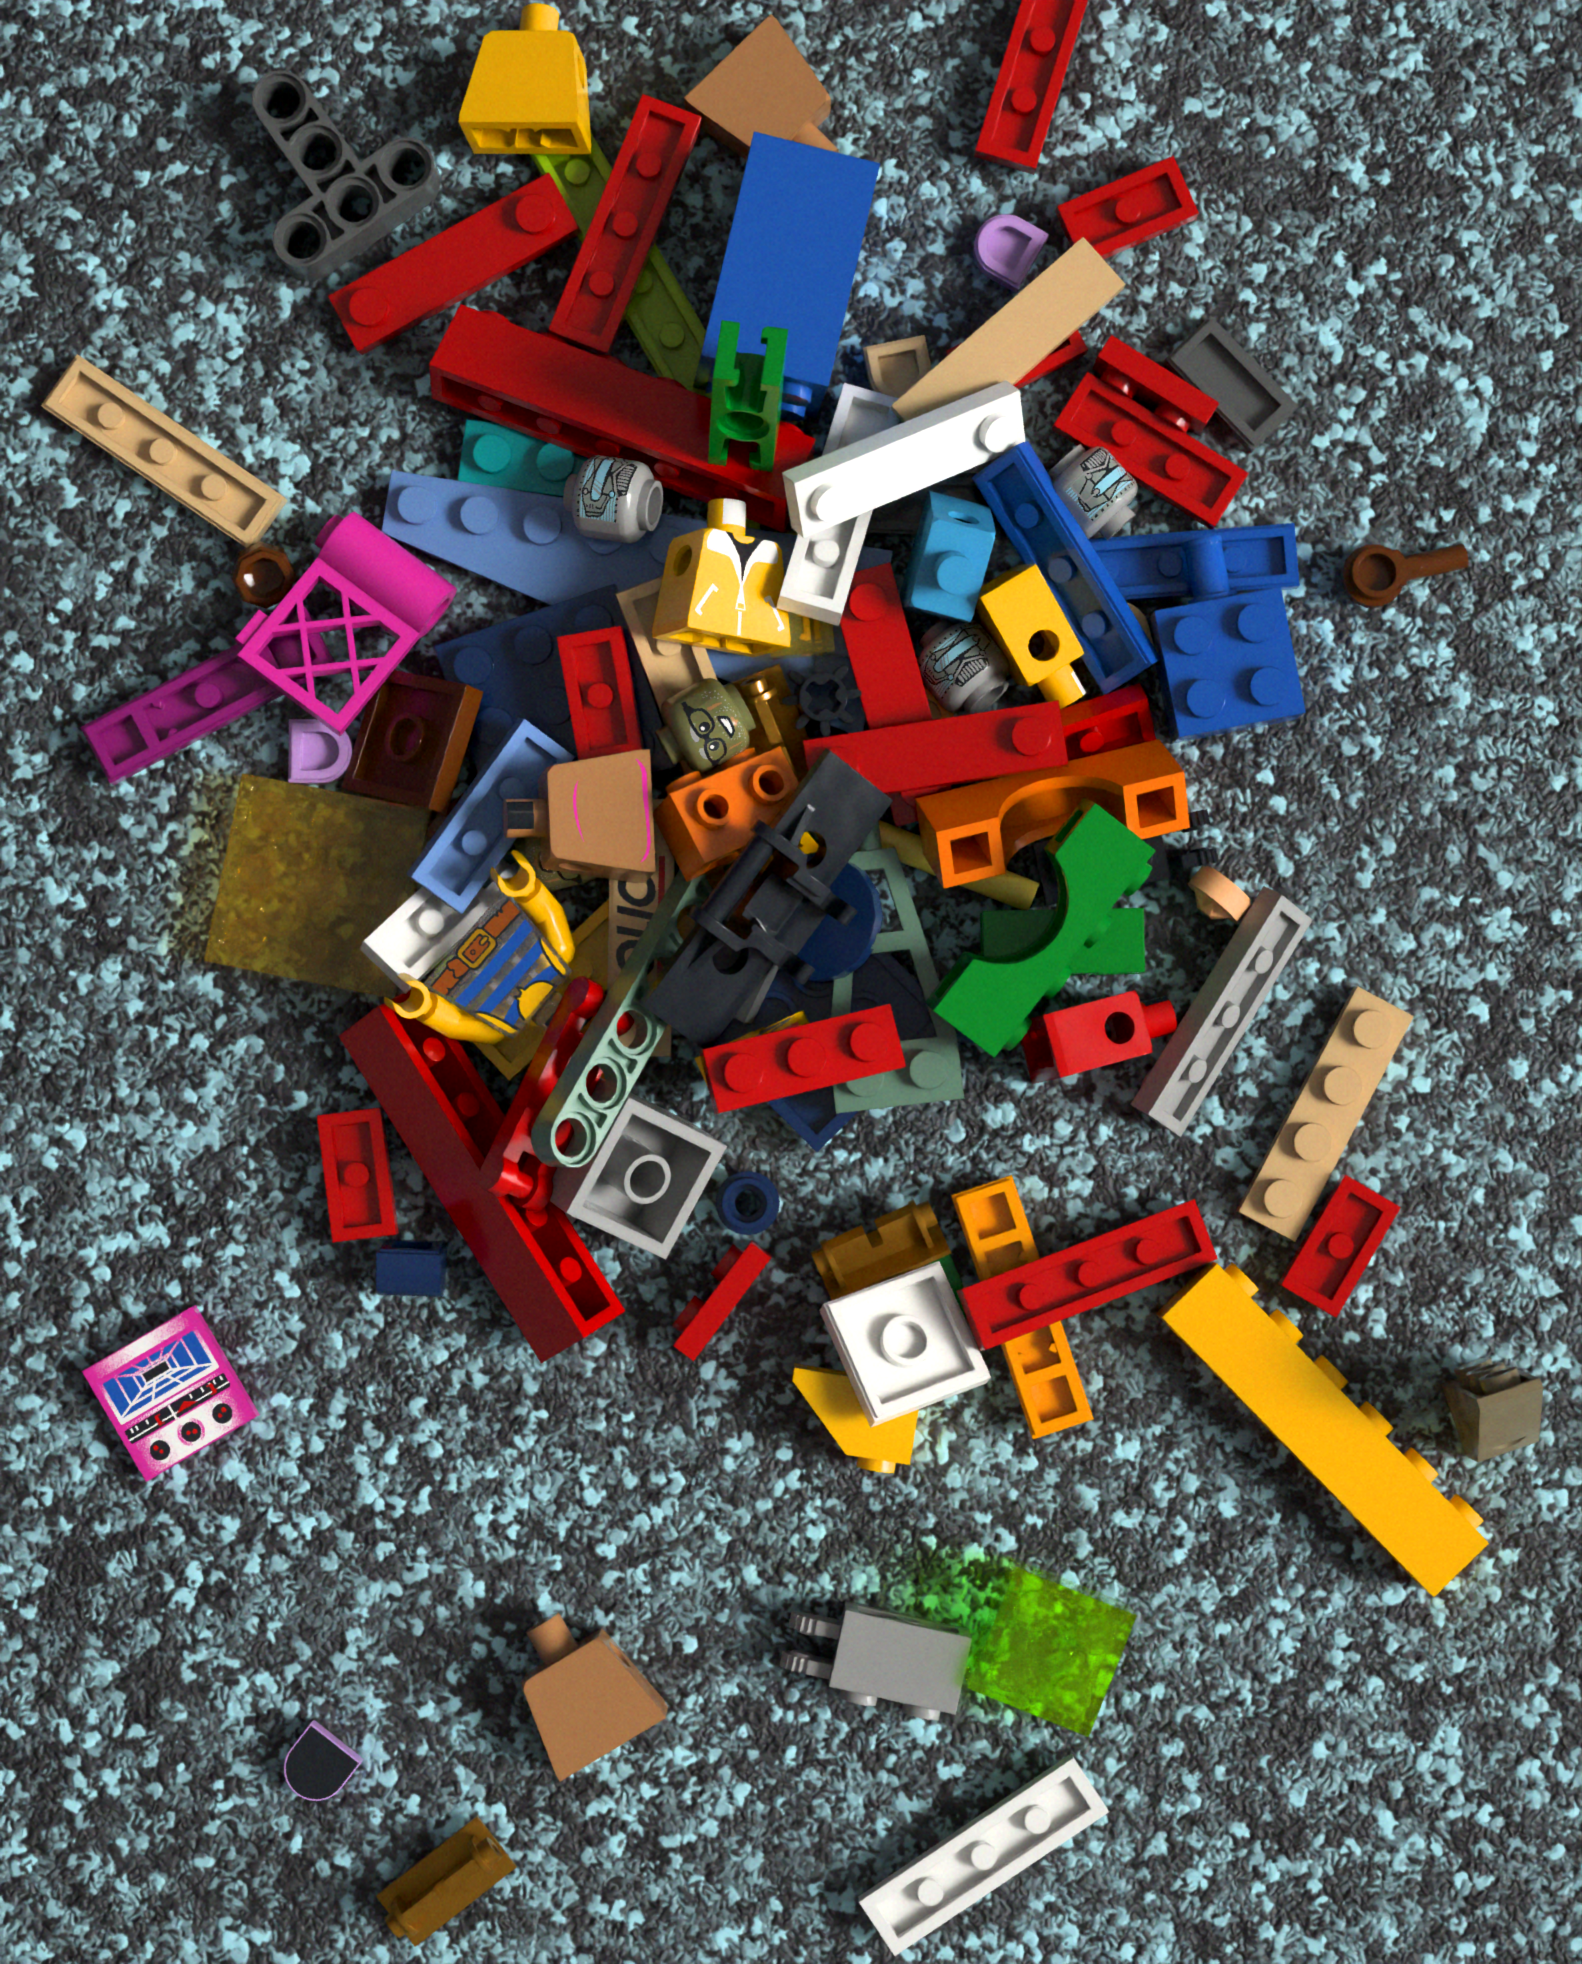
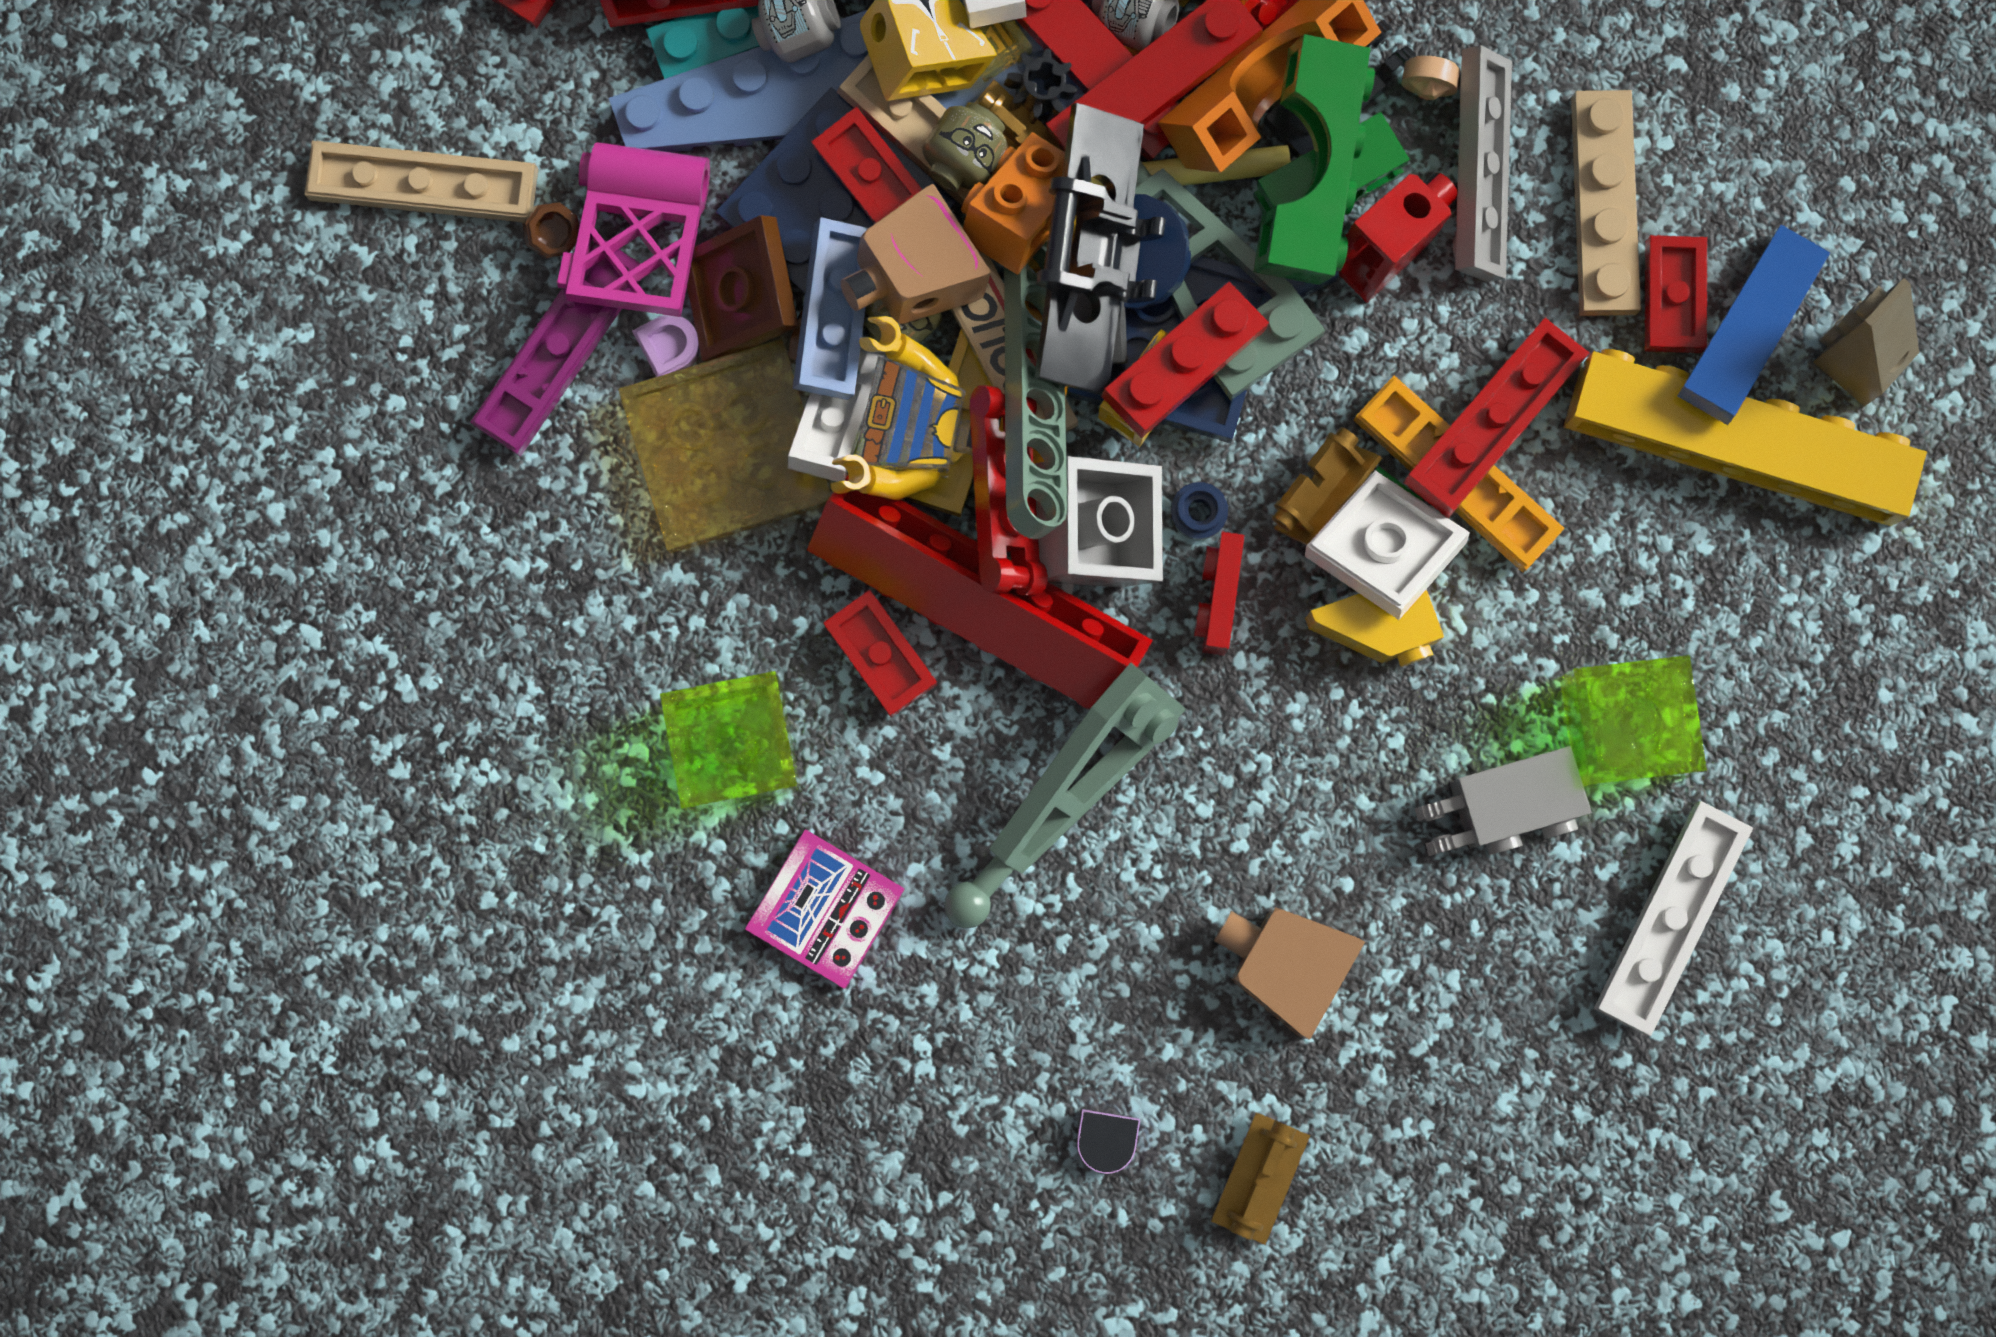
camera: 35 degrees left, 5 degrees down
(161, 1187) = (730, 742): none -> clear neon green brick
(411, 1268) = (964, 704): dark blue brick -> none
(570, 1377) = (1131, 705): none -> sand green plate
(1394, 1322) = (1753, 325): none -> blue tile

